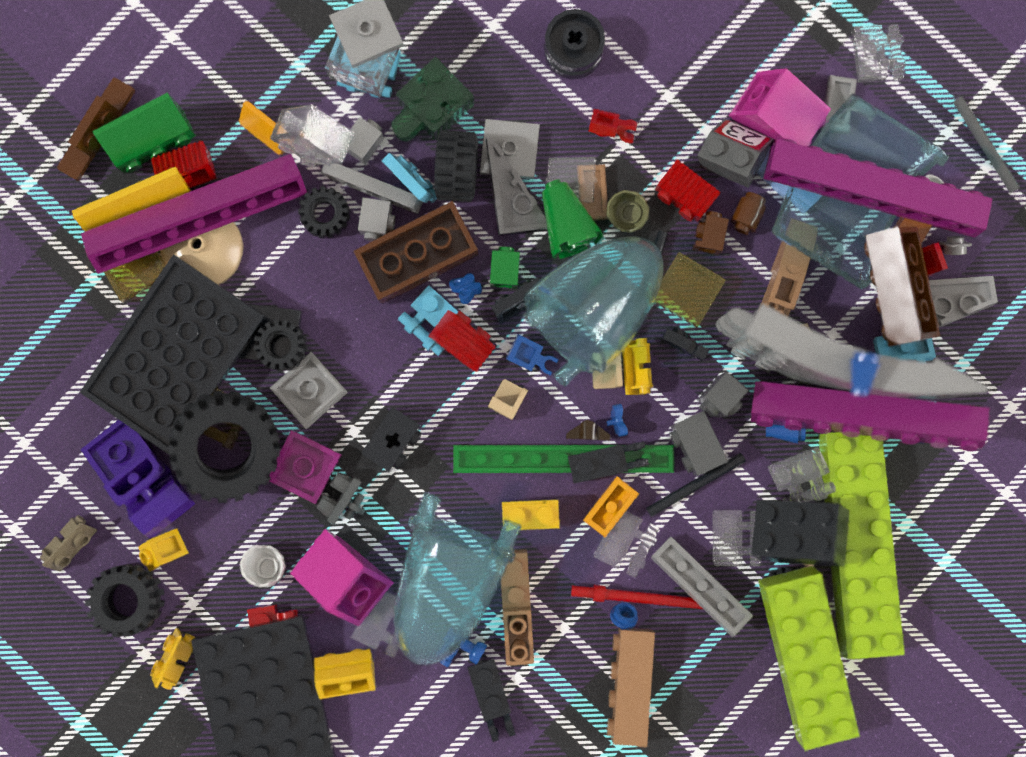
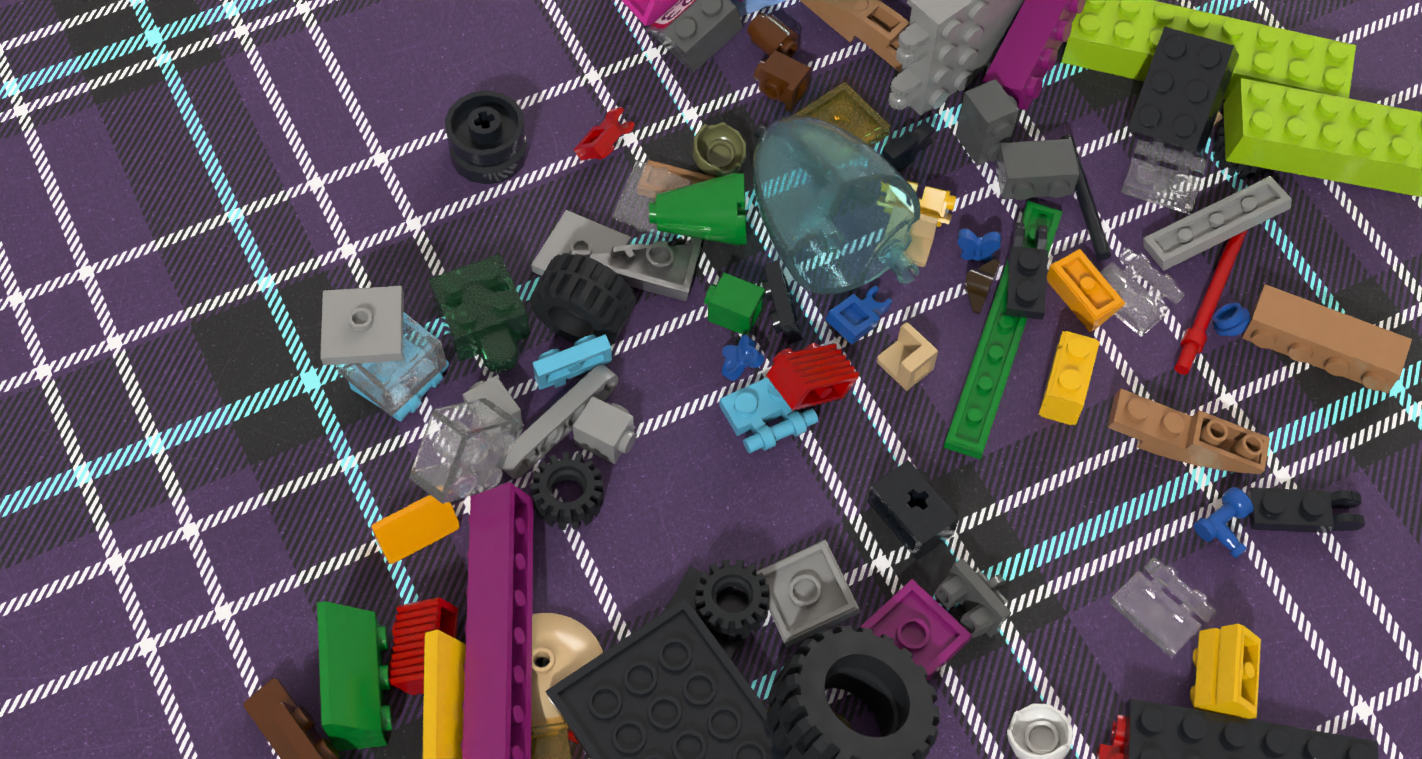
camera: 70 degrees left, 25 degrees down
(341, 578) = (1085, 633): dark pink slope -> none
(416, 252) = (674, 392): reddish brown brick -> none
(446, 583) = (1142, 485): clear light blue windscreen -> none
(686, 191) = (719, 87): red brick -> none
(782, 433) = (1052, 84): blue cone -> none
(799, 469) = (1102, 79): clear plate -> none

